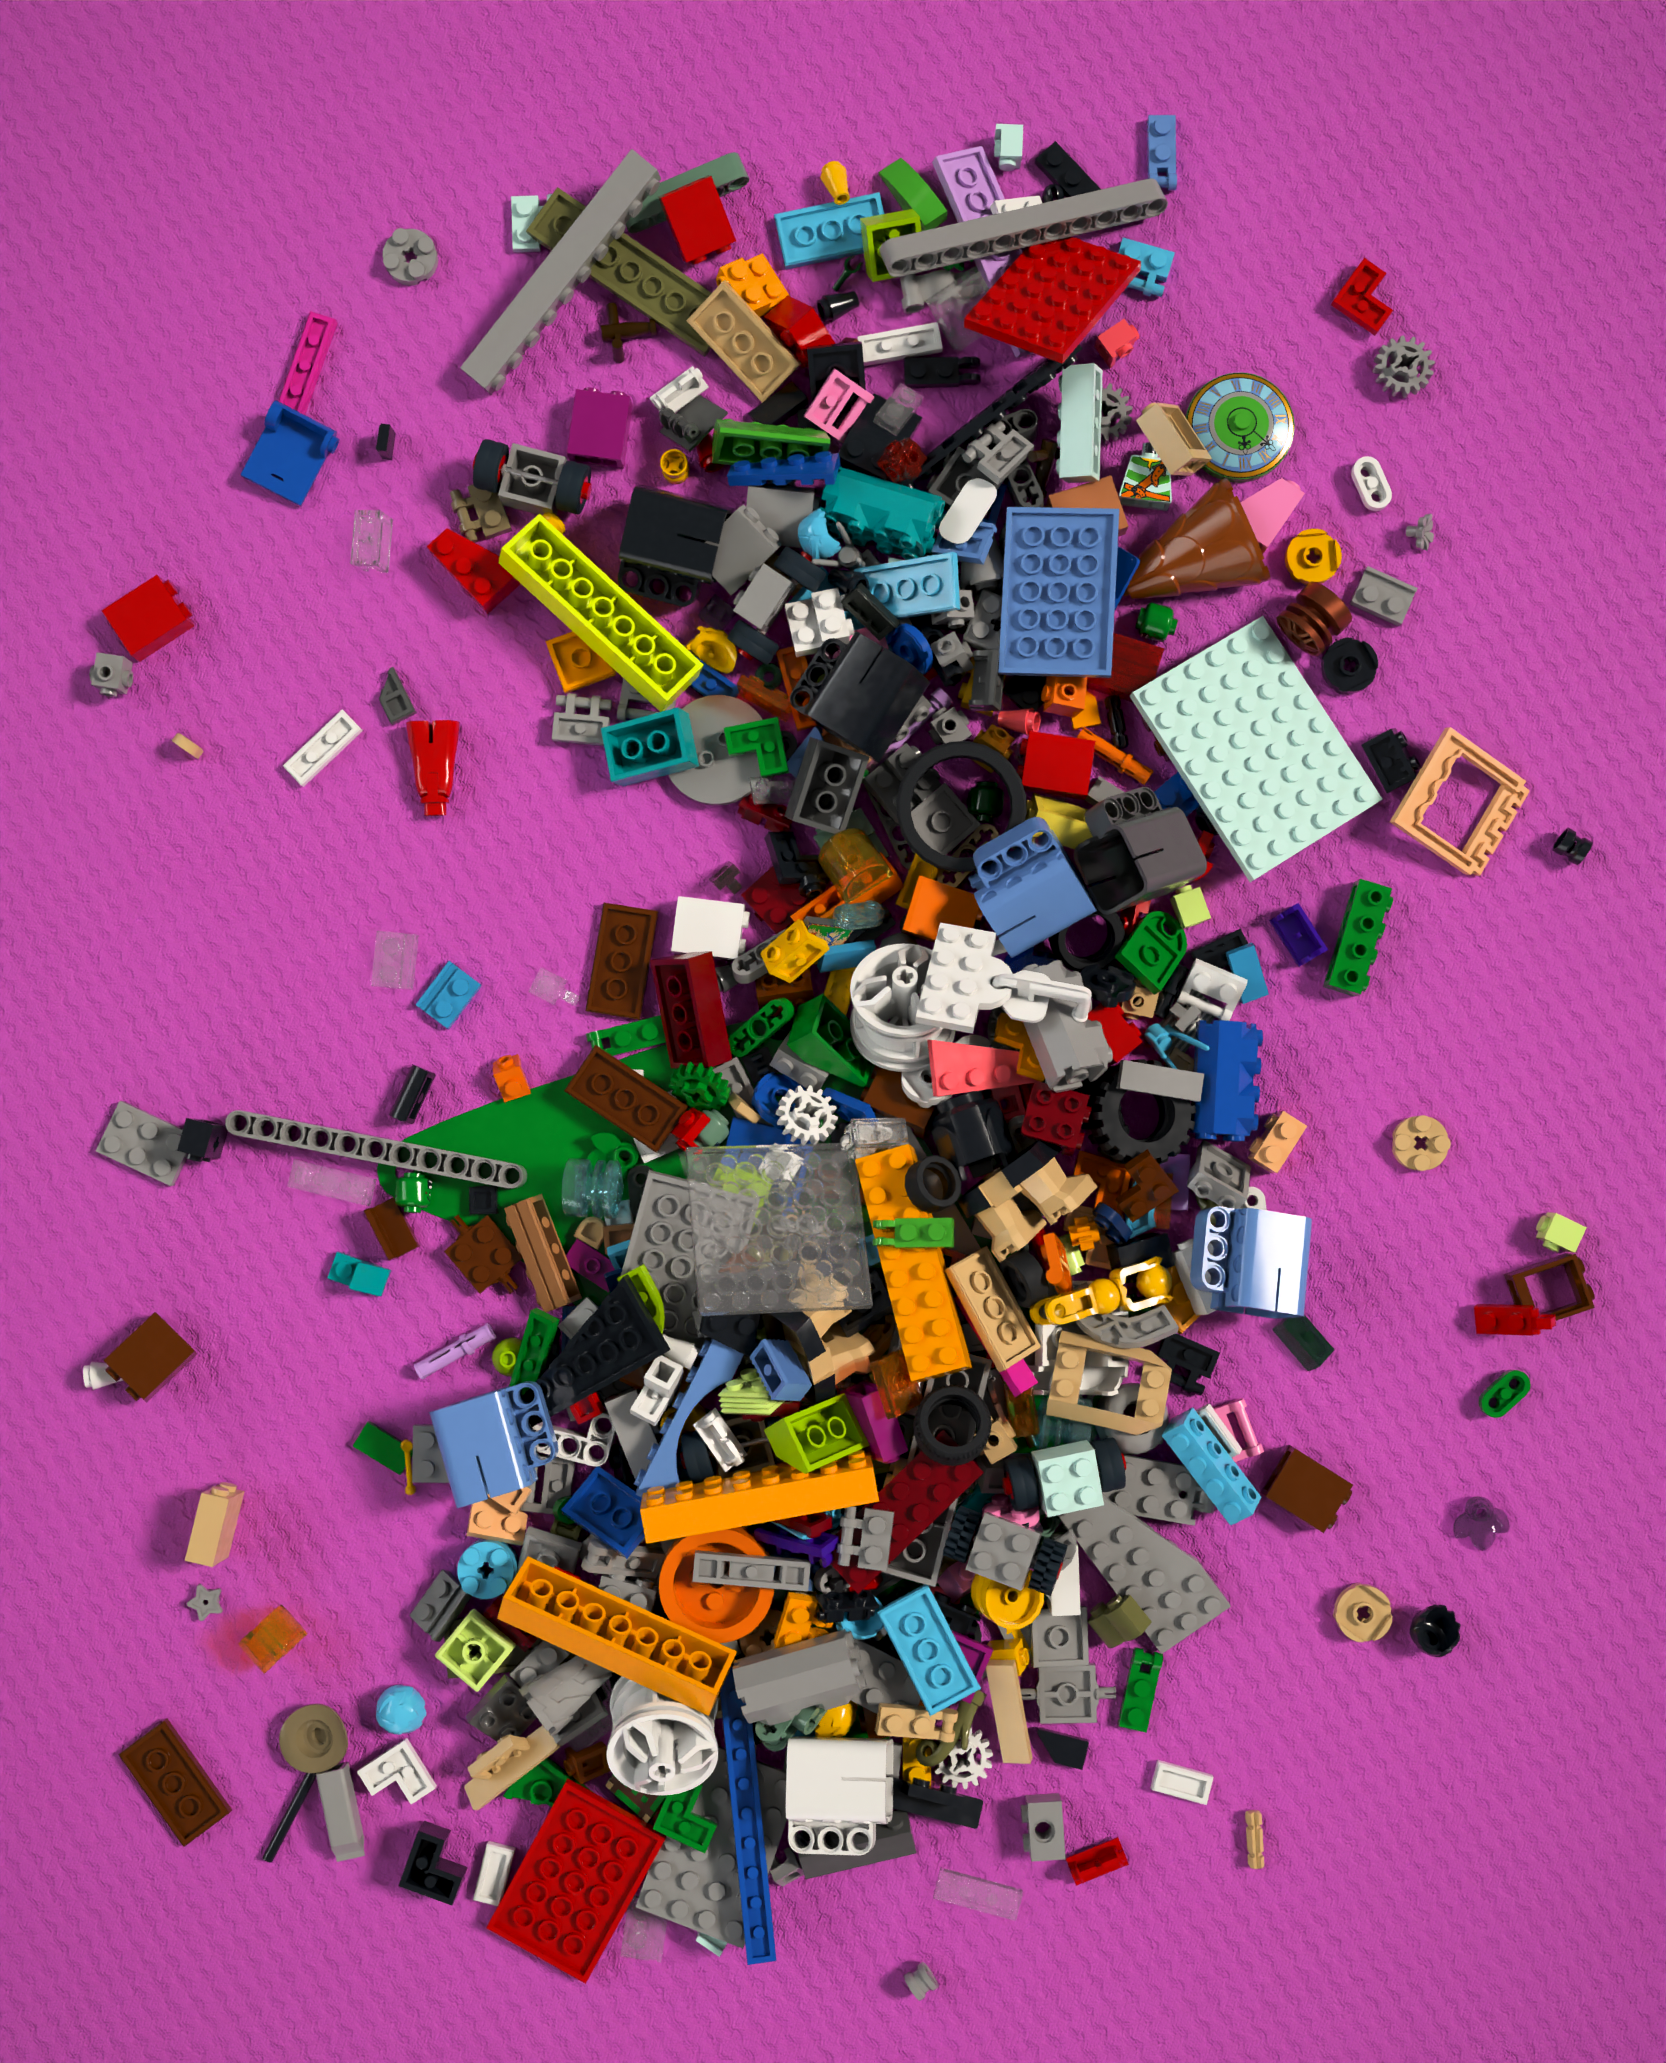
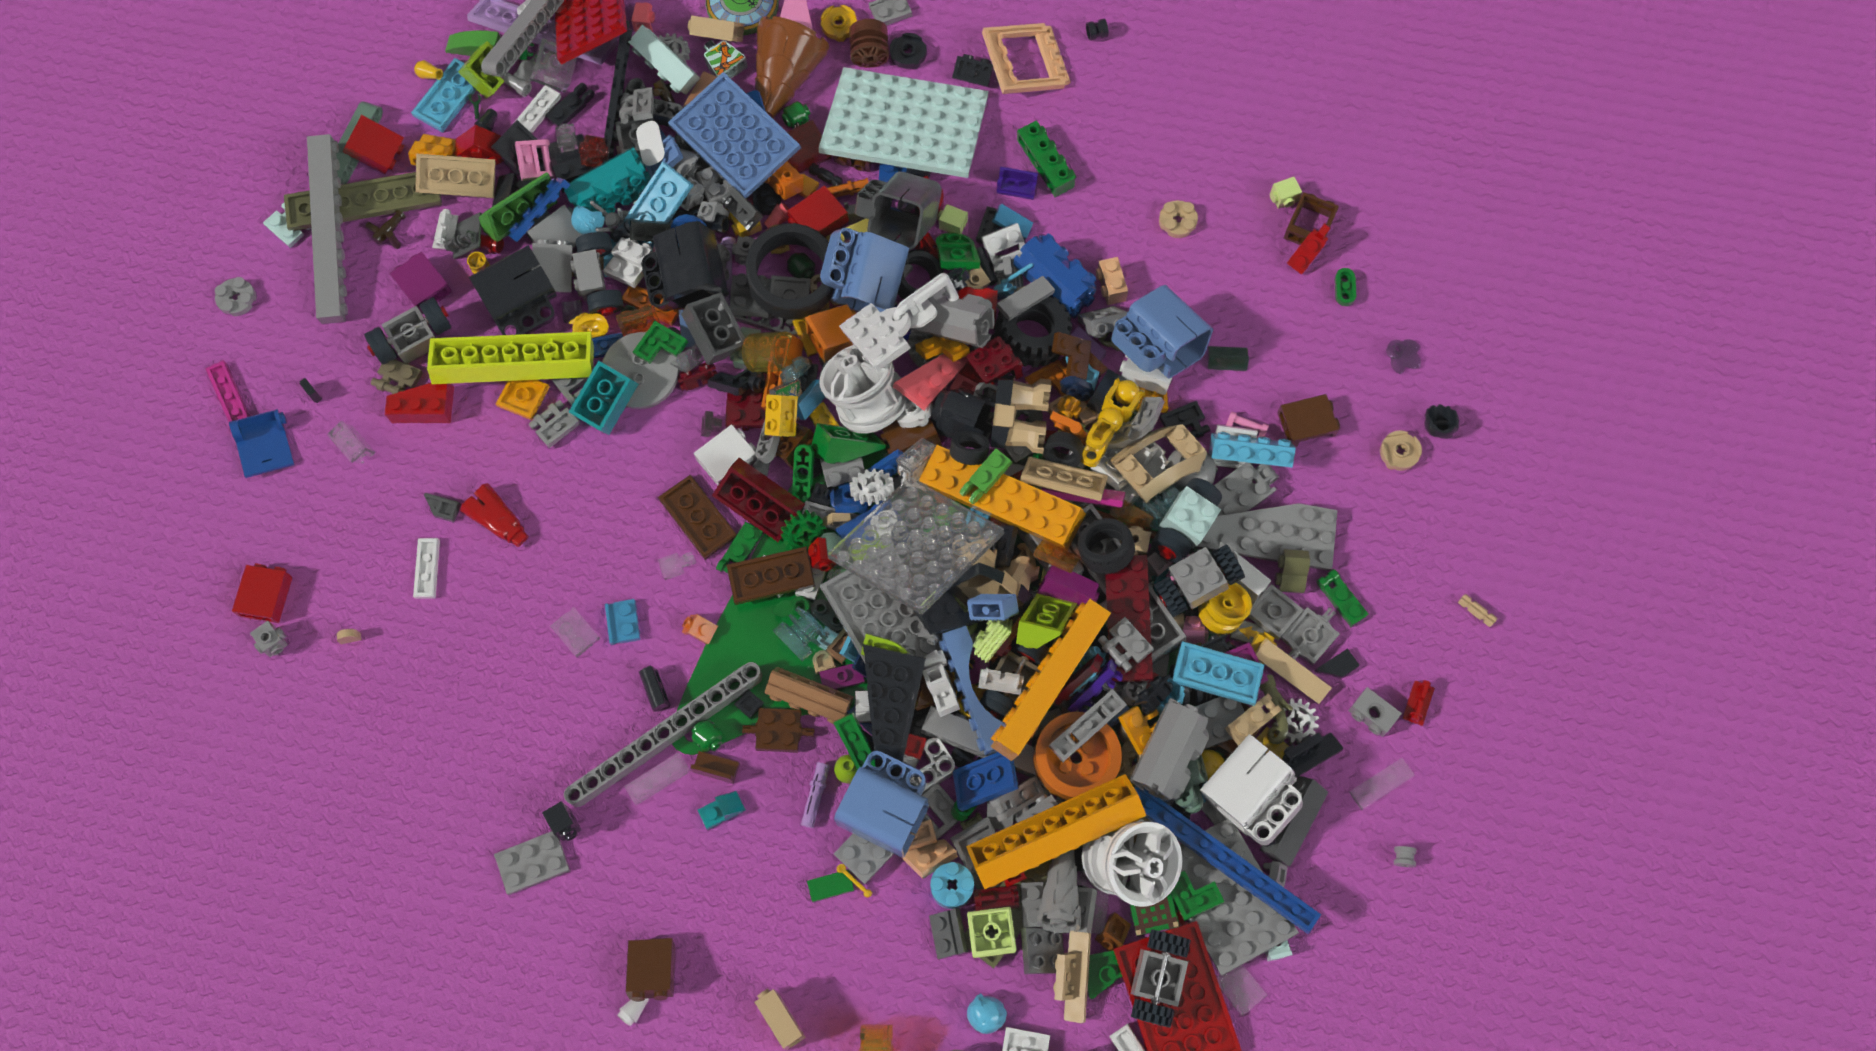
camera: 50 degrees left, 15 degrees down
(570, 1858) = (1159, 978): none -> brick
(1182, 1782) = (1412, 621): white tile -> none

